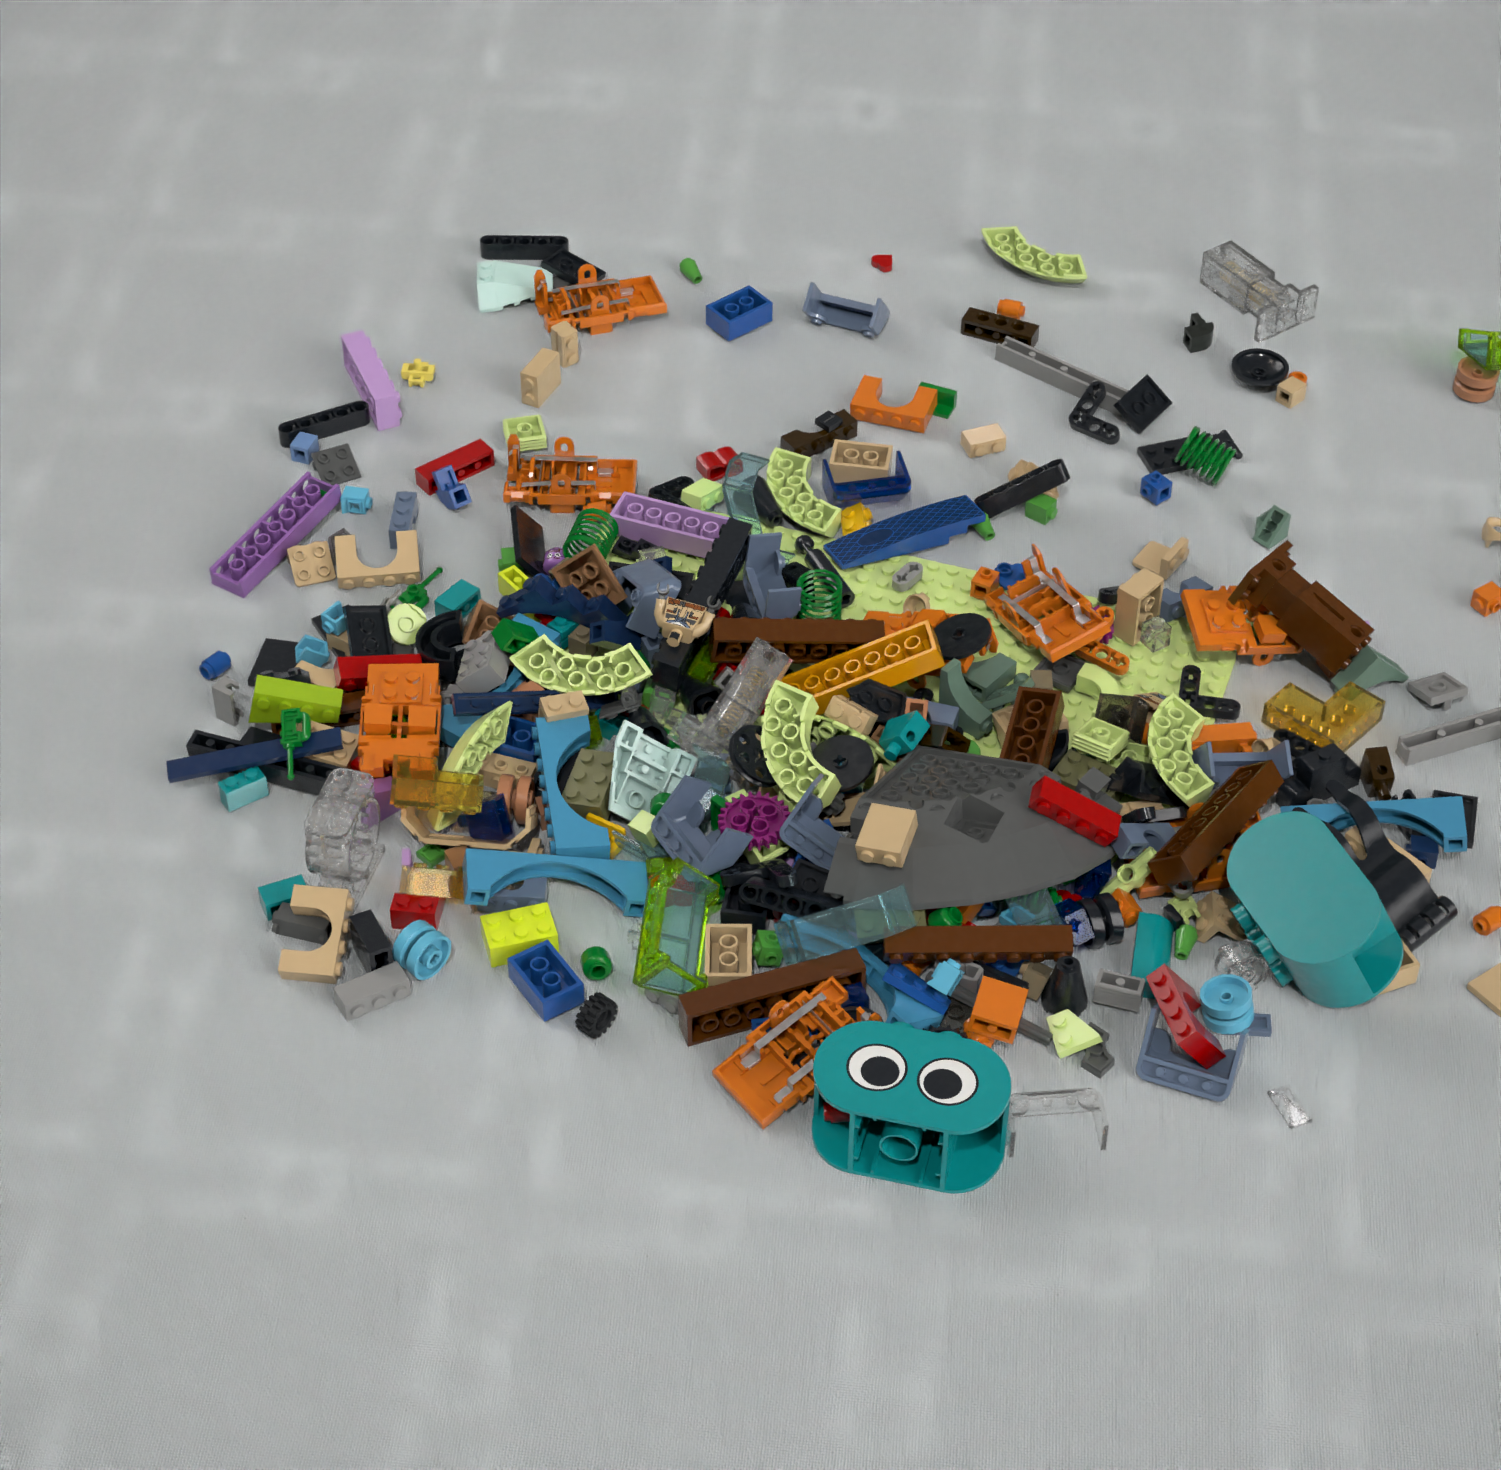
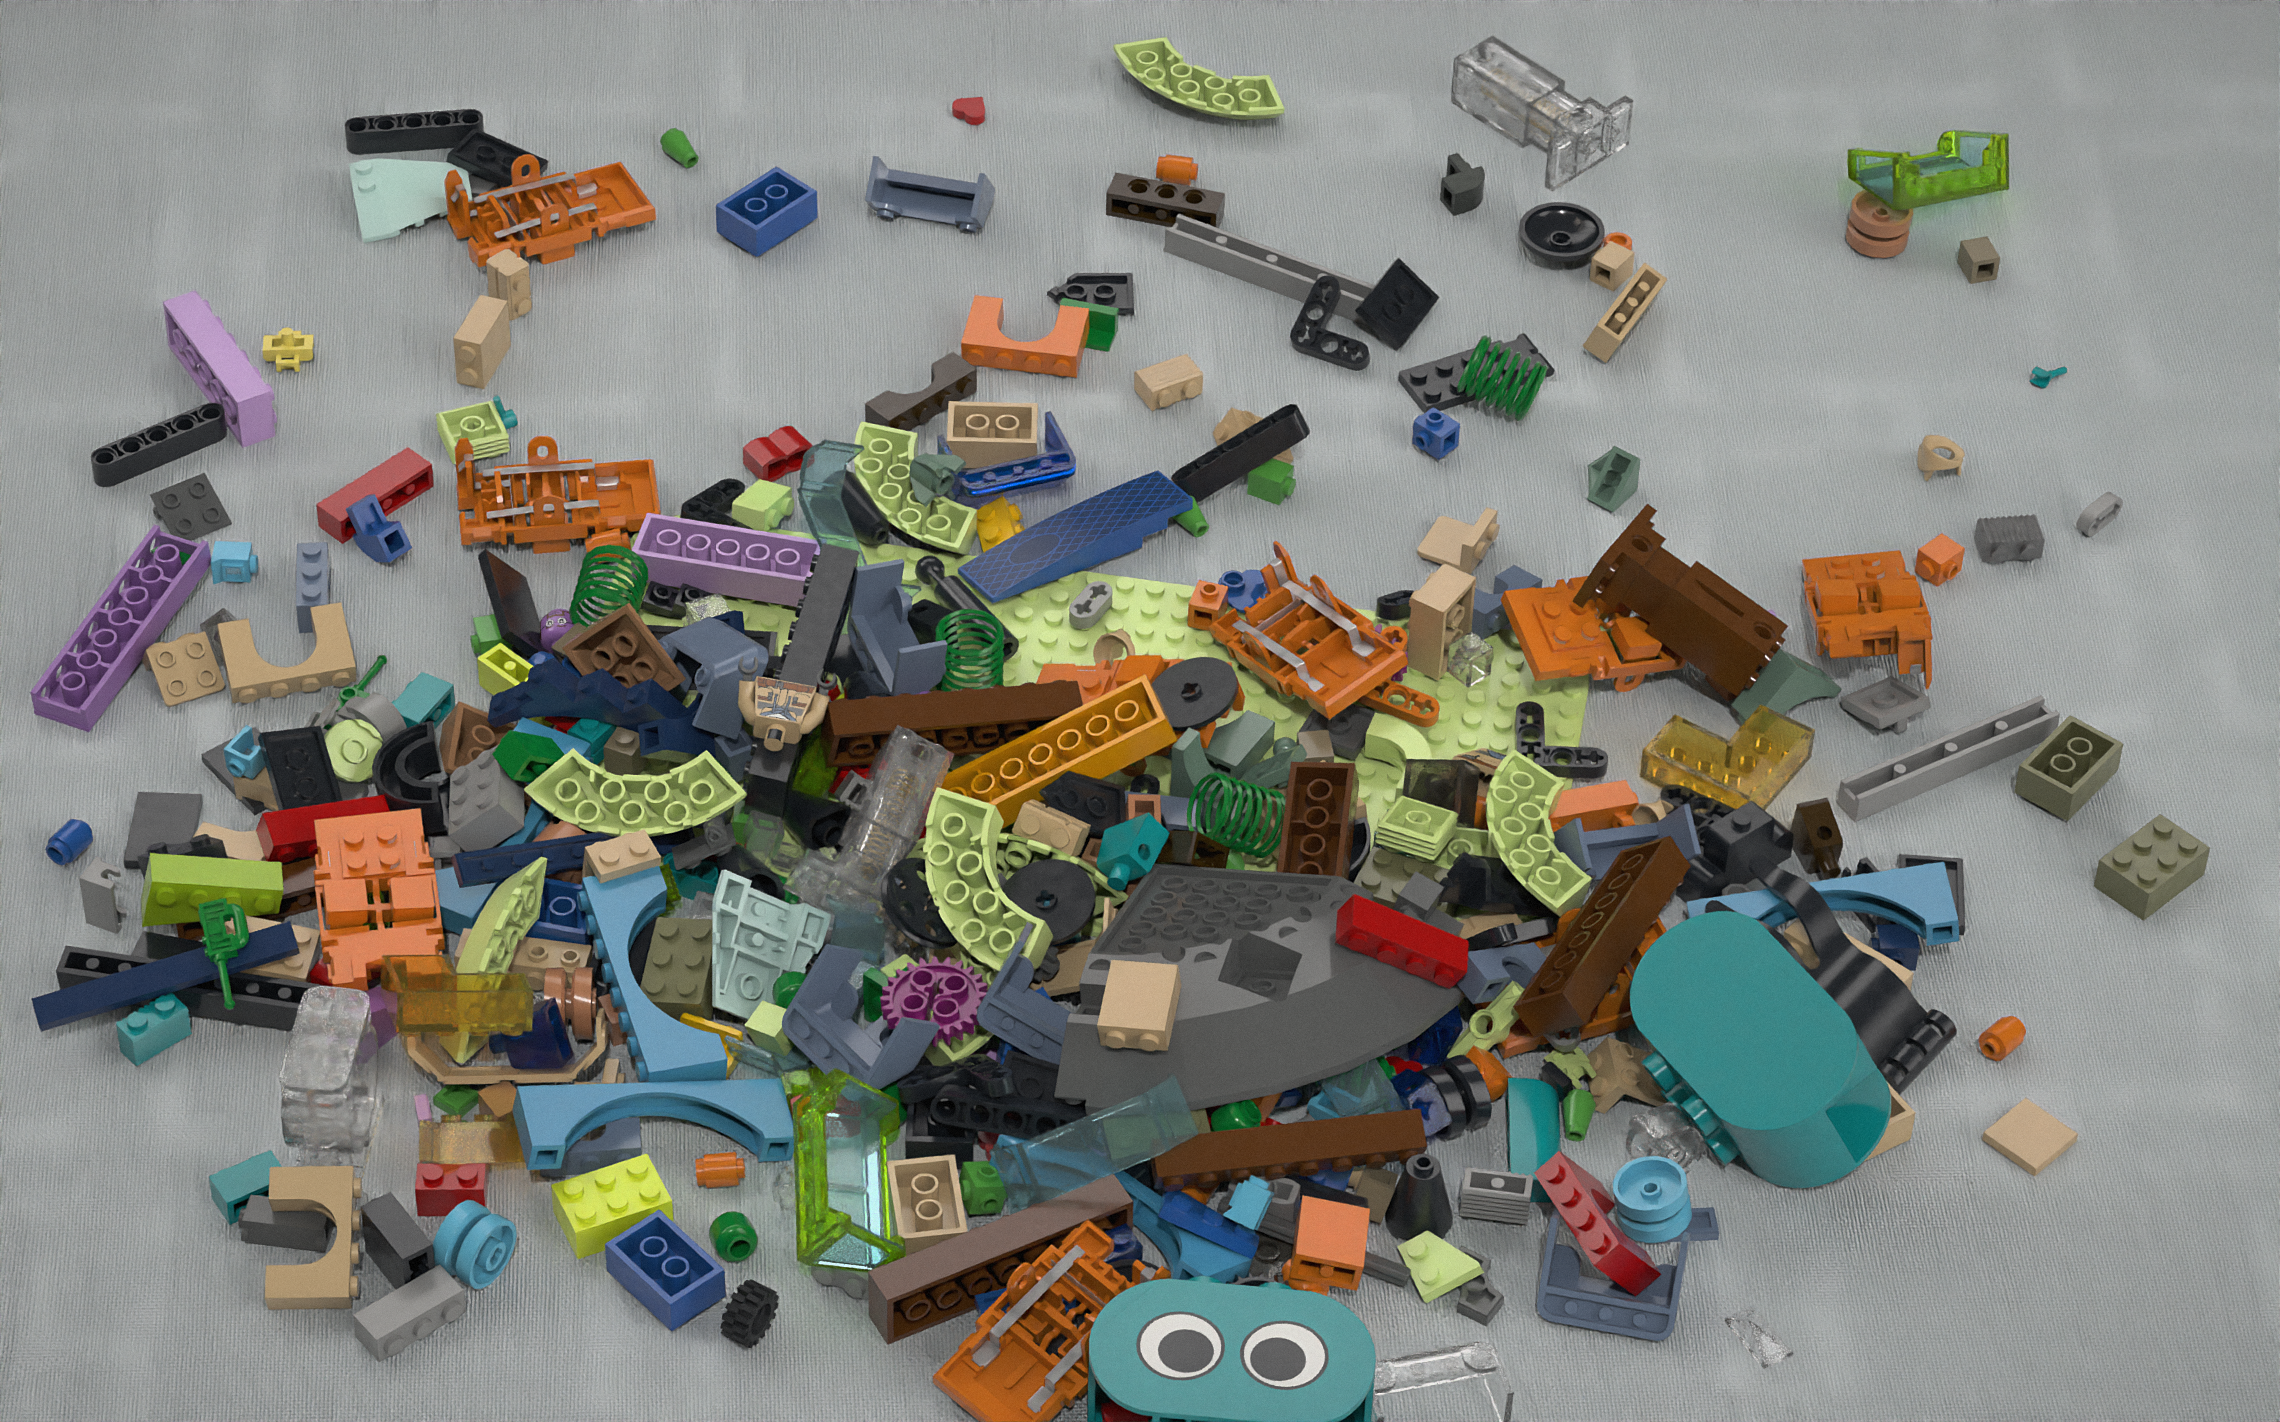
camera: 10 degrees left, 0 degrees up
(303, 446) = (135, 485): medium blue brick -> none
(312, 651) = (214, 805): medium azure window -> none
(426, 601) = (375, 711): none -> light grey brick
(548, 426) = (508, 417): none -> teal hand
(595, 918) = (720, 1170): none -> orange brick
(815, 483) = (933, 475): none -> sand green brick
(828, 421) = (934, 373): black tile -> none
(948, 378) = (1098, 288): none -> black tile
(972, 704) = (1225, 809): none -> green piece
(1295, 421) = (1625, 312): none -> tan brick
(1434, 626) = (1869, 609): none -> orange piece

